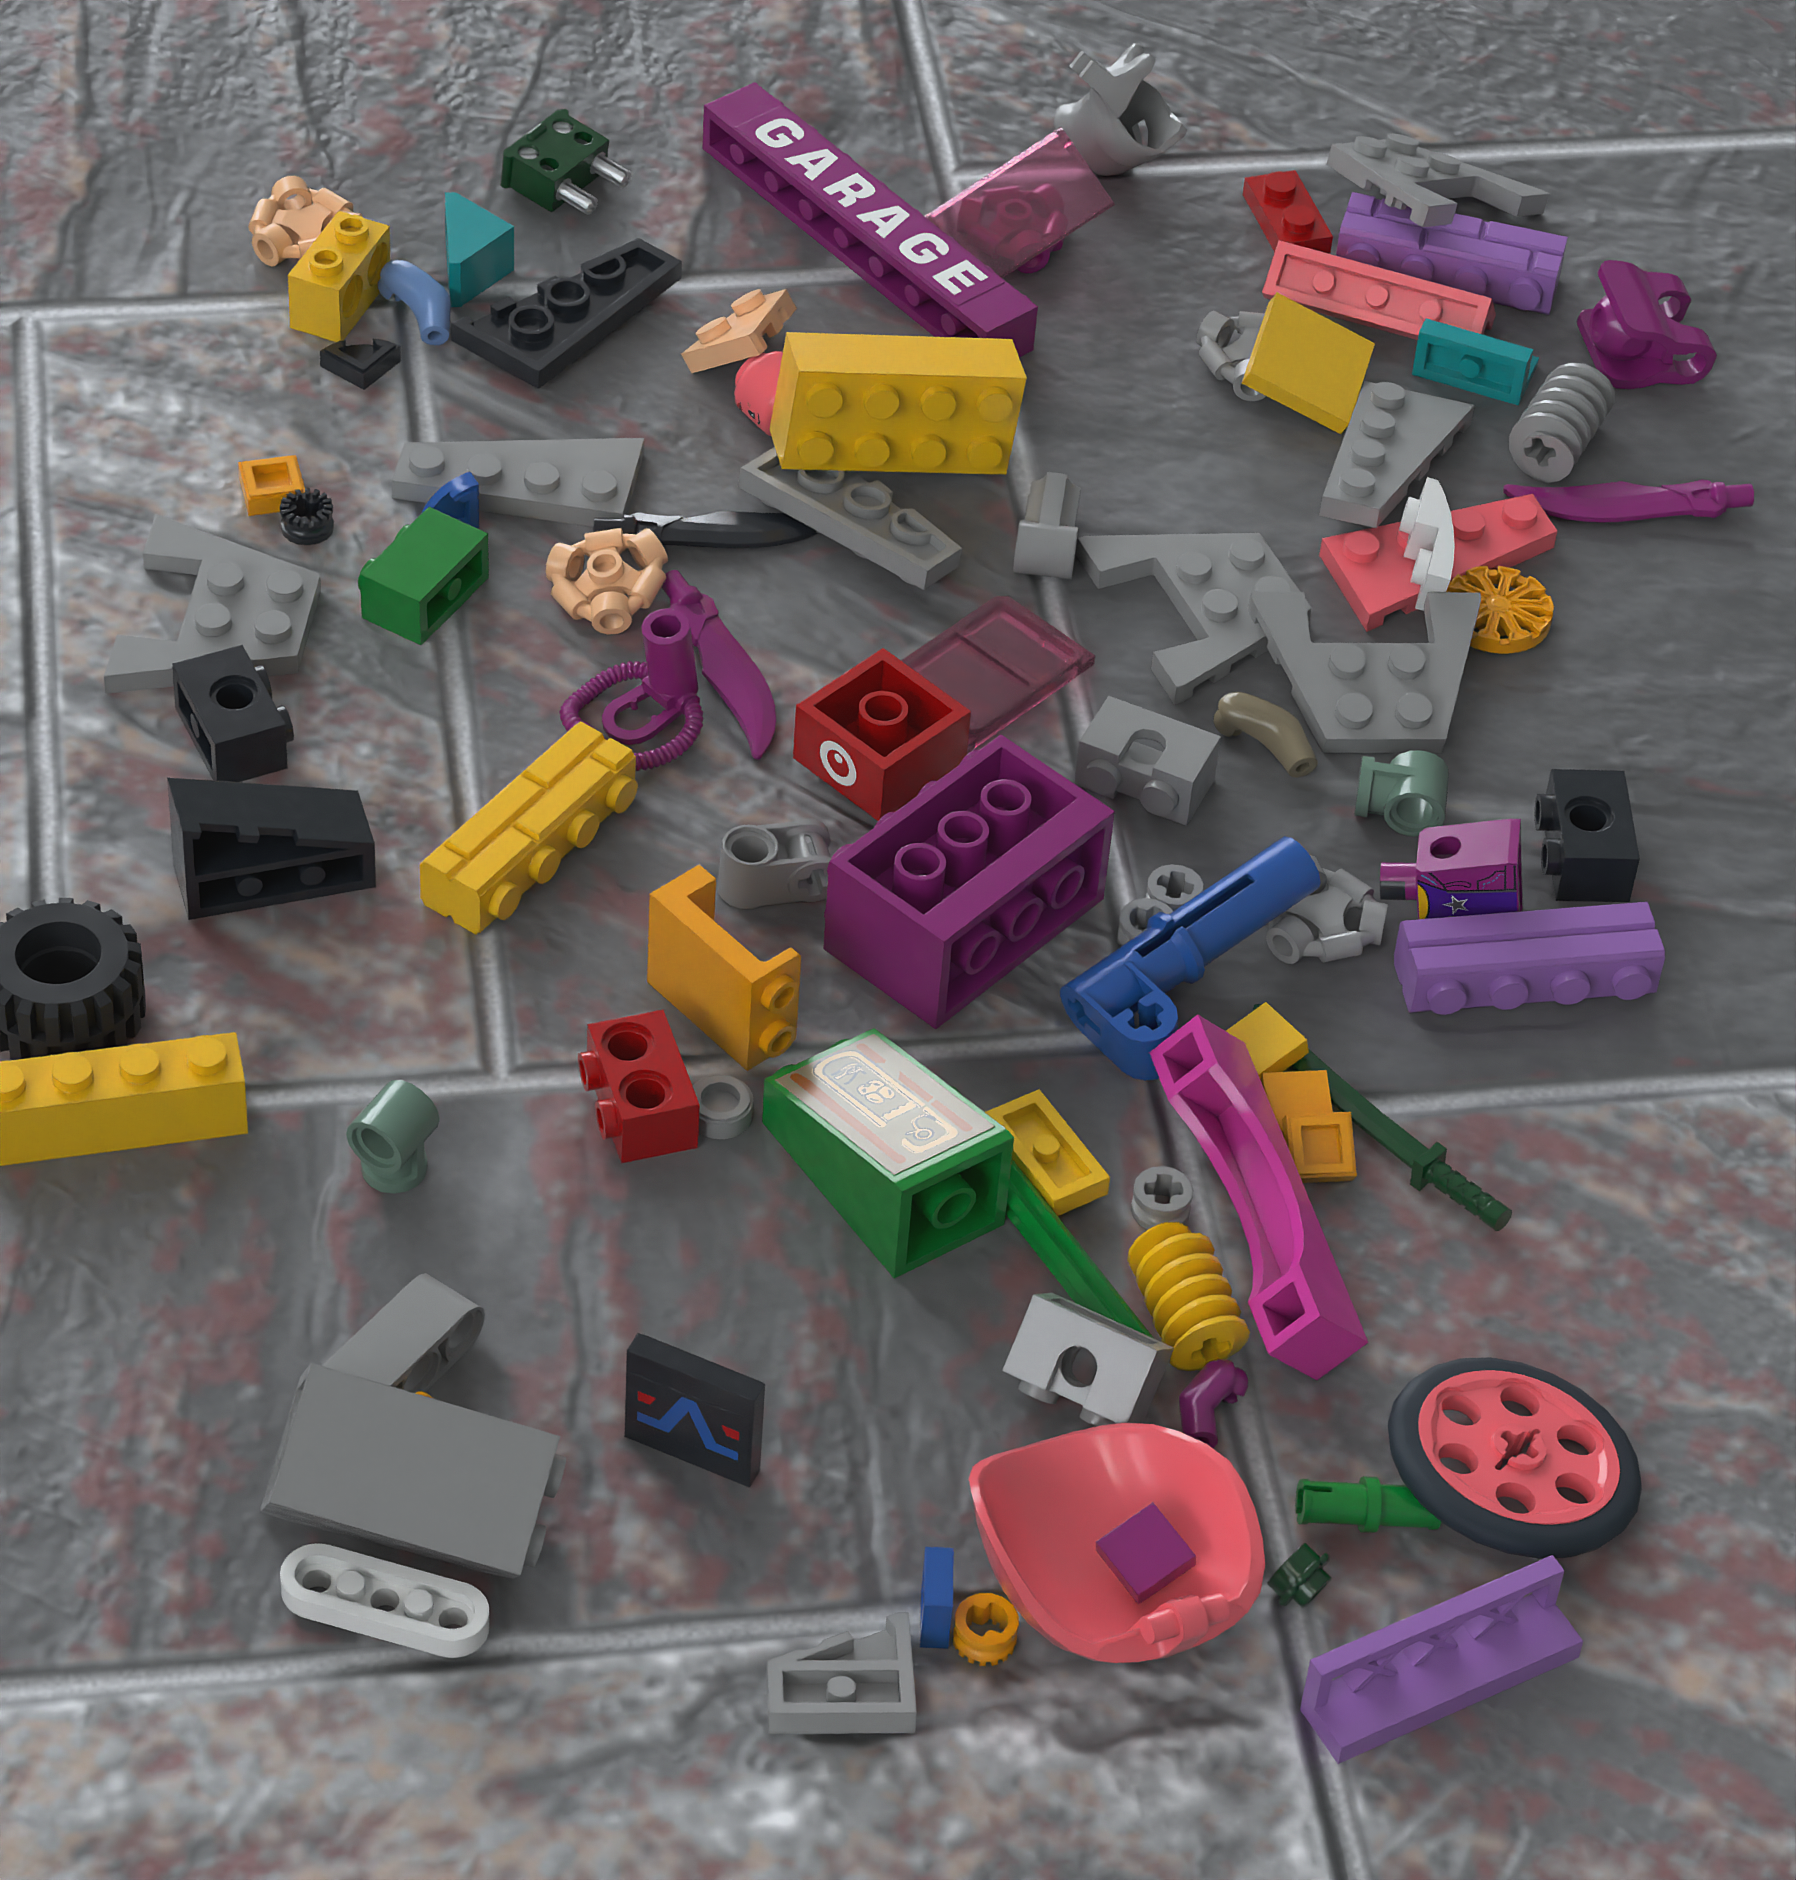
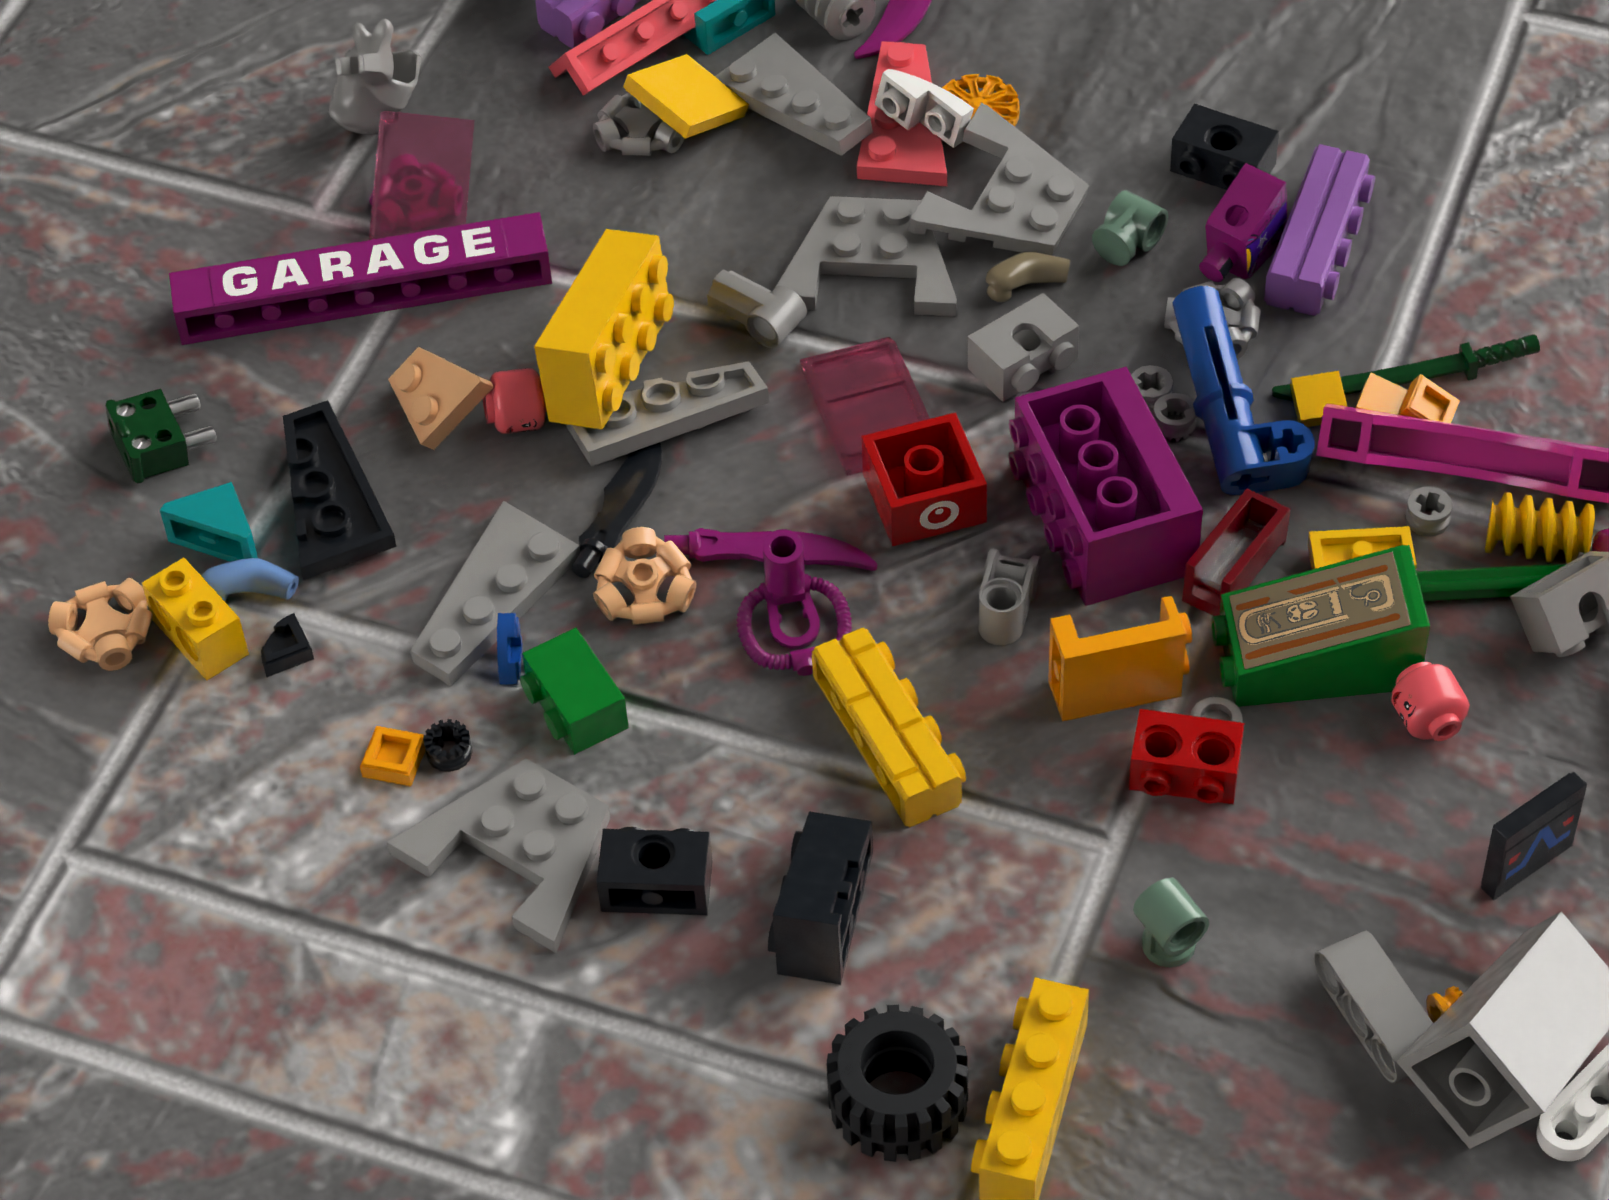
camera: 55 degrees left, 5 degrees up
(853, 1272) = (1430, 701): none -> coral head
(972, 1032) = (1235, 550): none -> dark red window
(1286, 211) = (505, 47): red plate -> none

